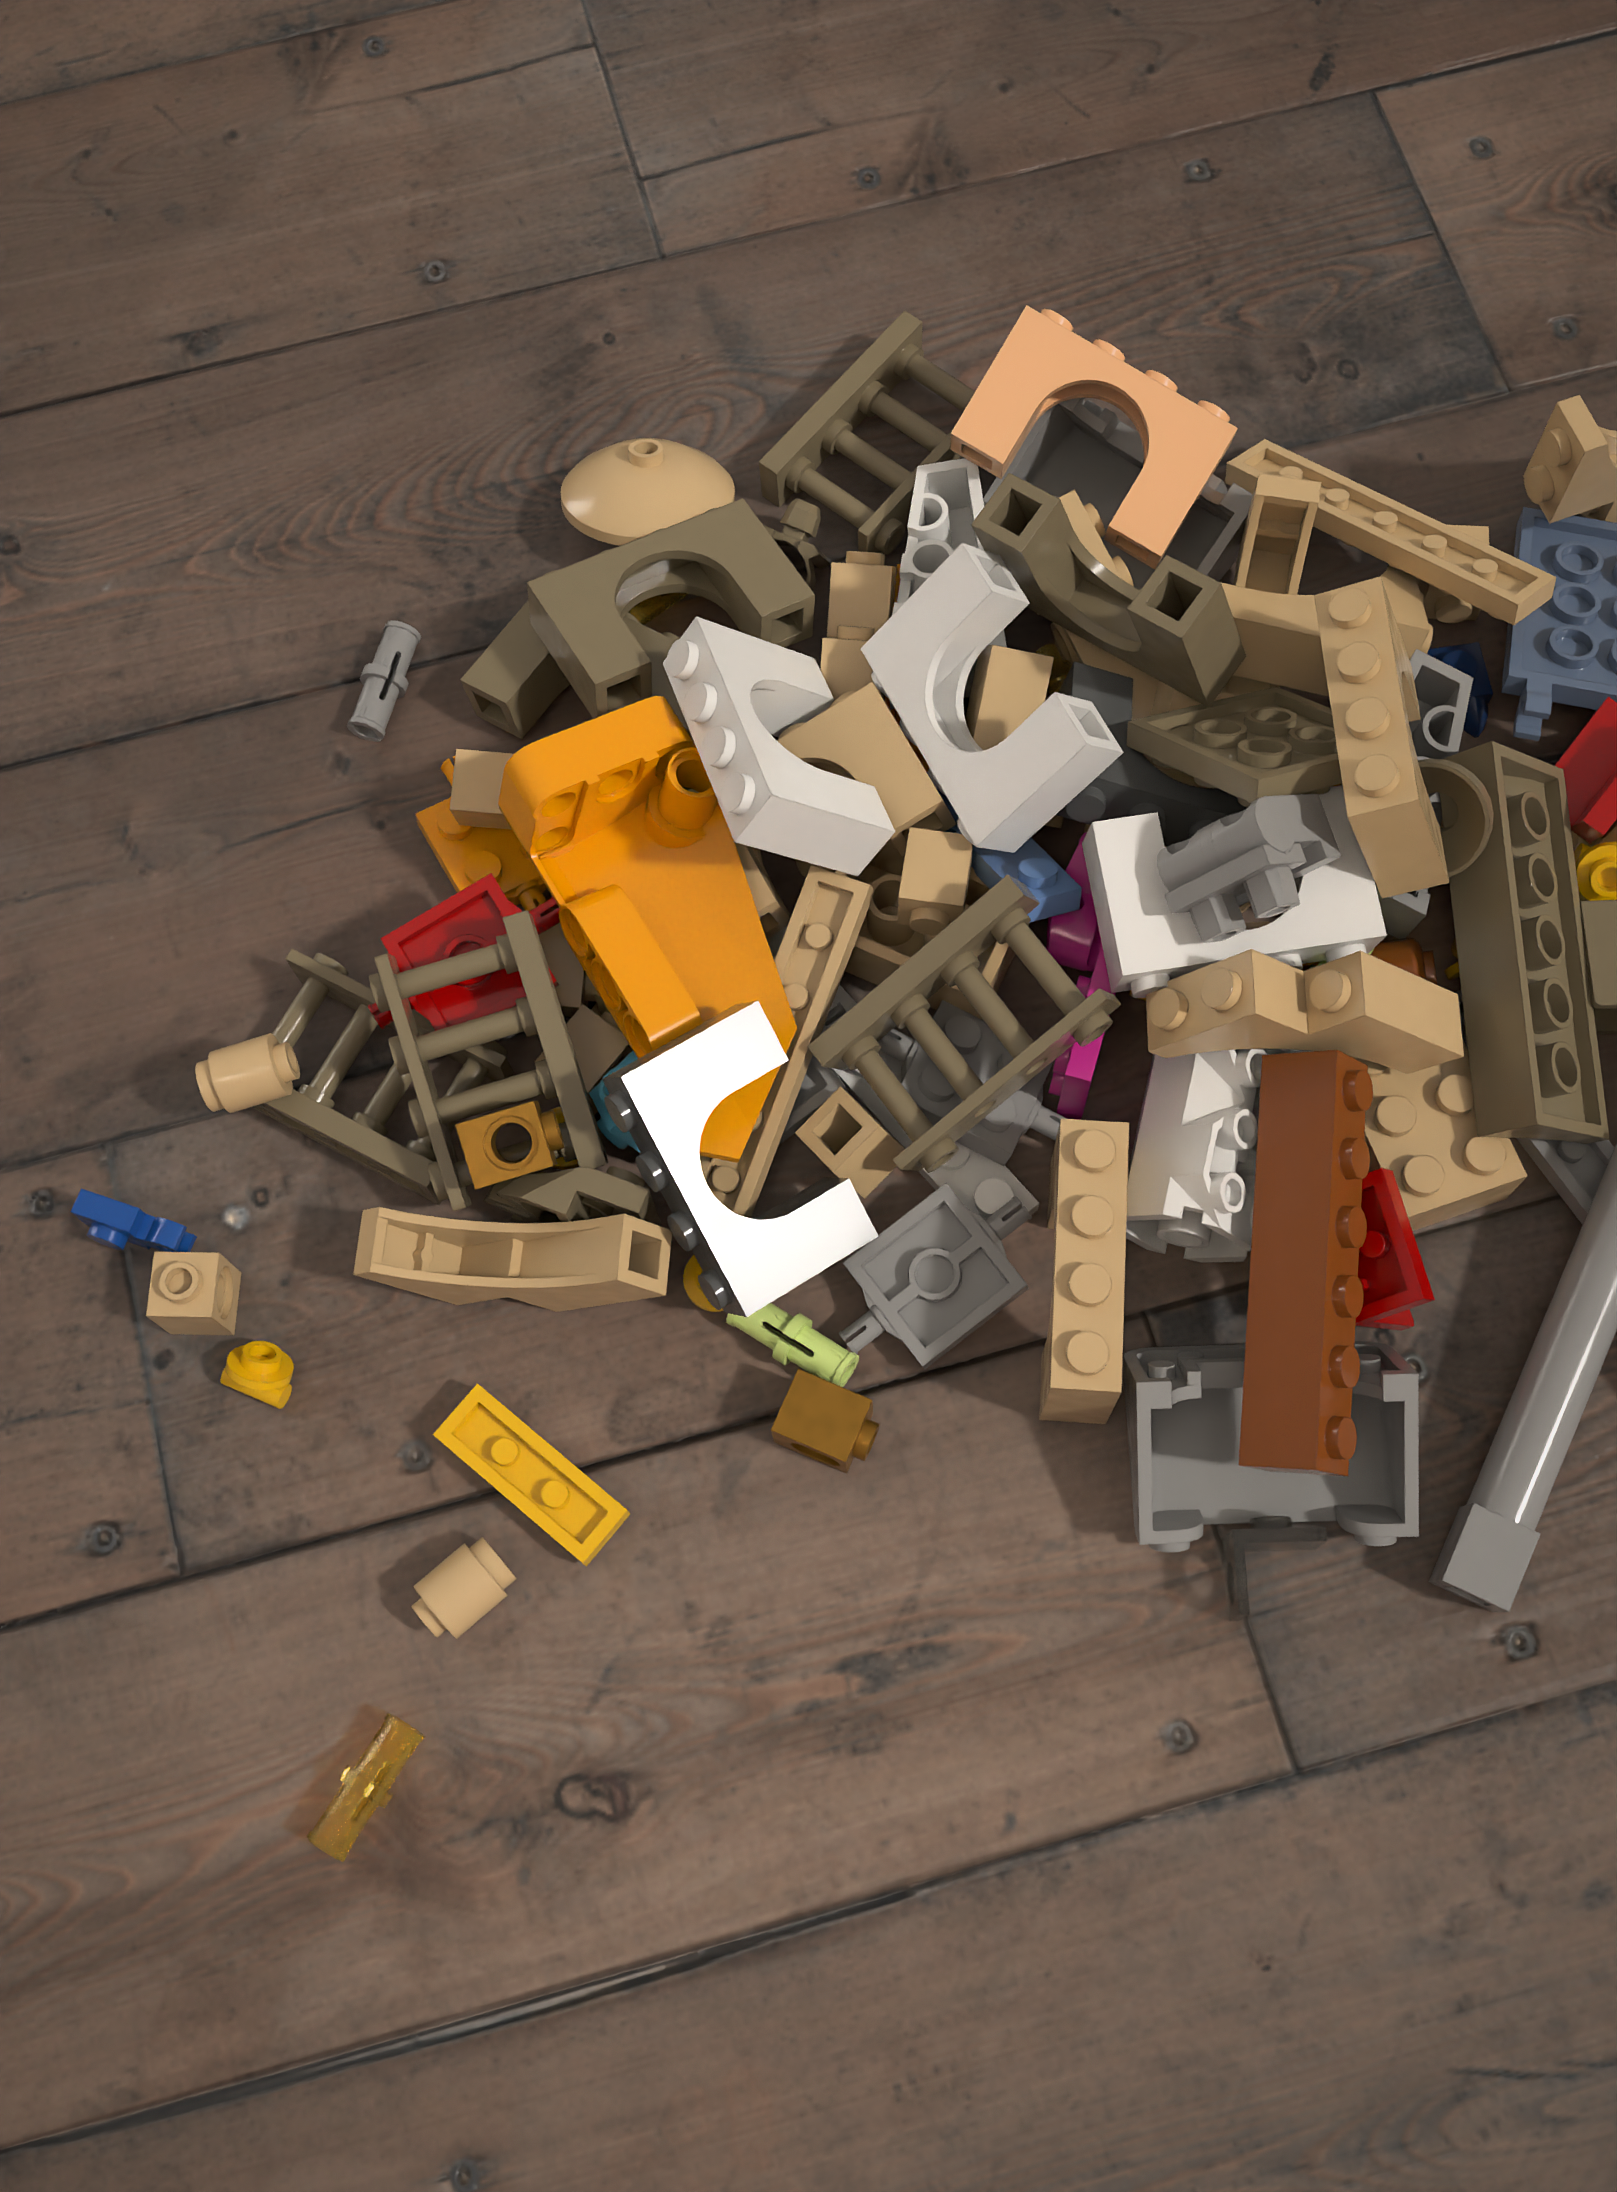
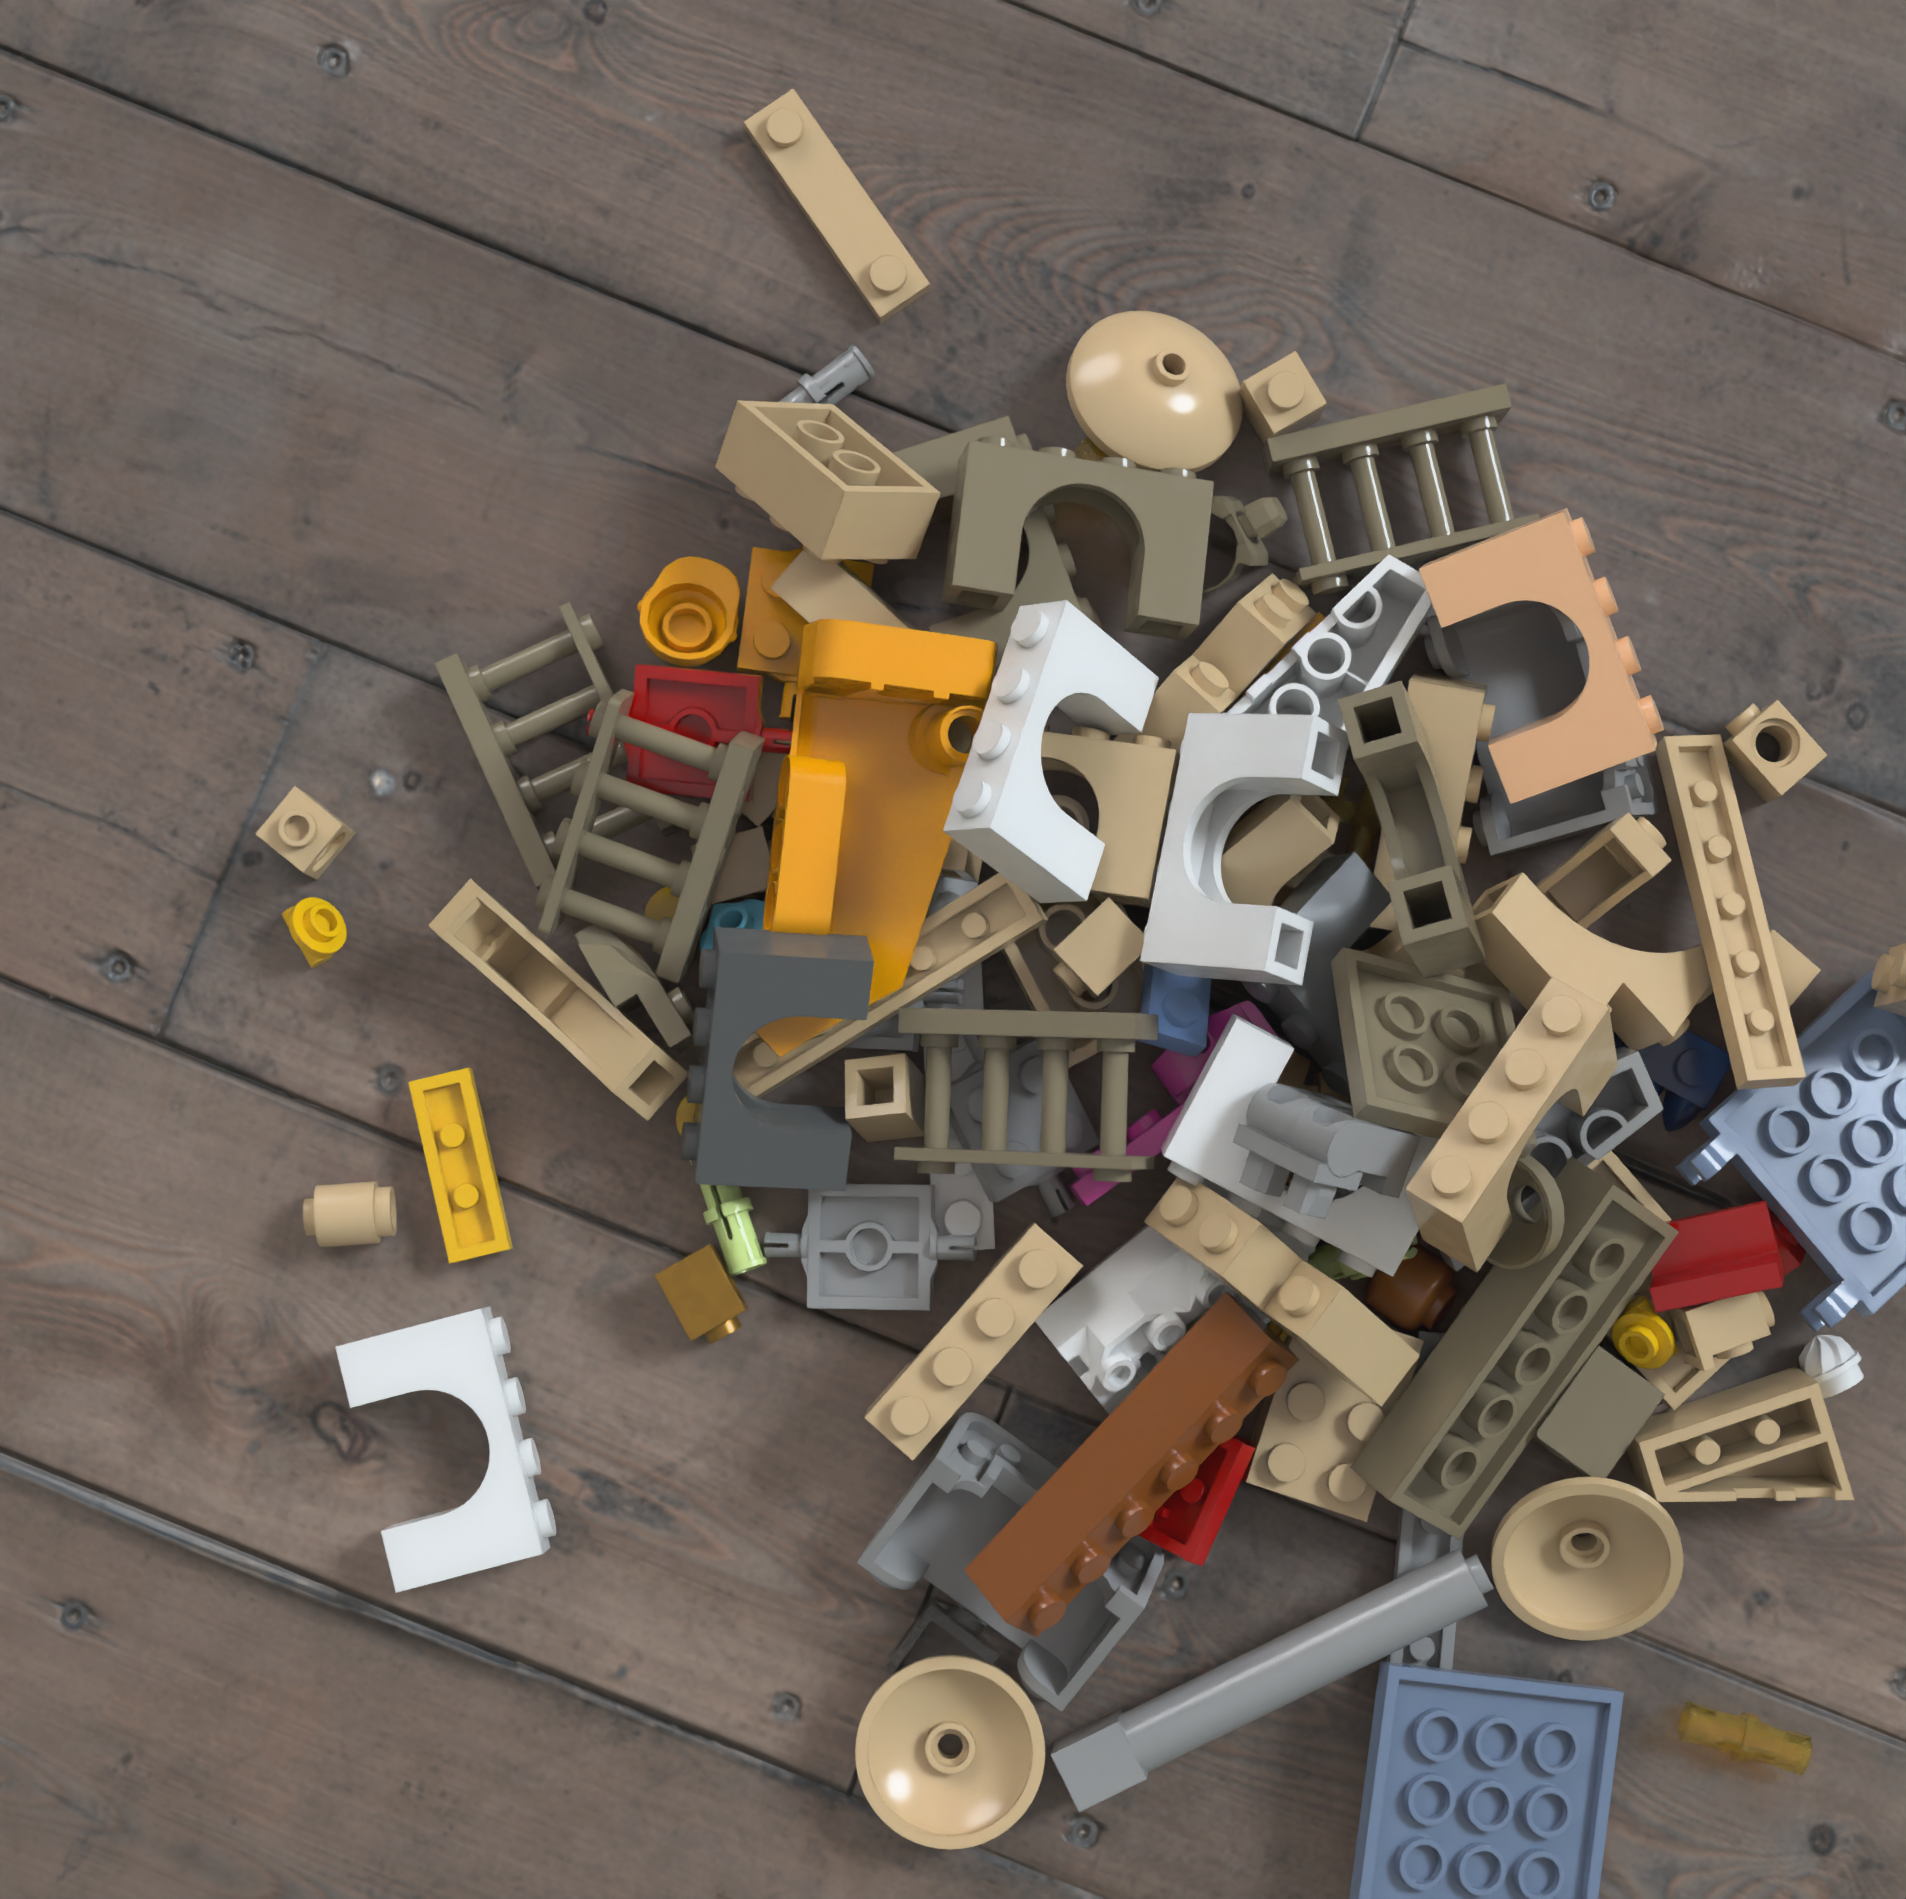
camera: 30 degrees right, 15 degrees up
(118, 1223) = (285, 728): blue plate -> none
(247, 1074) = (459, 695): tan brick -> none
(301, 546) = (837, 206): none -> tan plate
(365, 1787) = (184, 1303): clear yellow pin -> none
(397, 888) = (690, 611): none -> light orange hat
(437, 701) = (826, 481): none -> tan brick
(480, 1149) = (589, 930): pearl gold brick -> none
(655, 1640) = (504, 1515): none -> white arch
(745, 433) = (1282, 398): none -> tan brick
(1312, 418) = (1797, 749): none -> tan brick
(1403, 1641) = (958, 1796): none -> tan dish

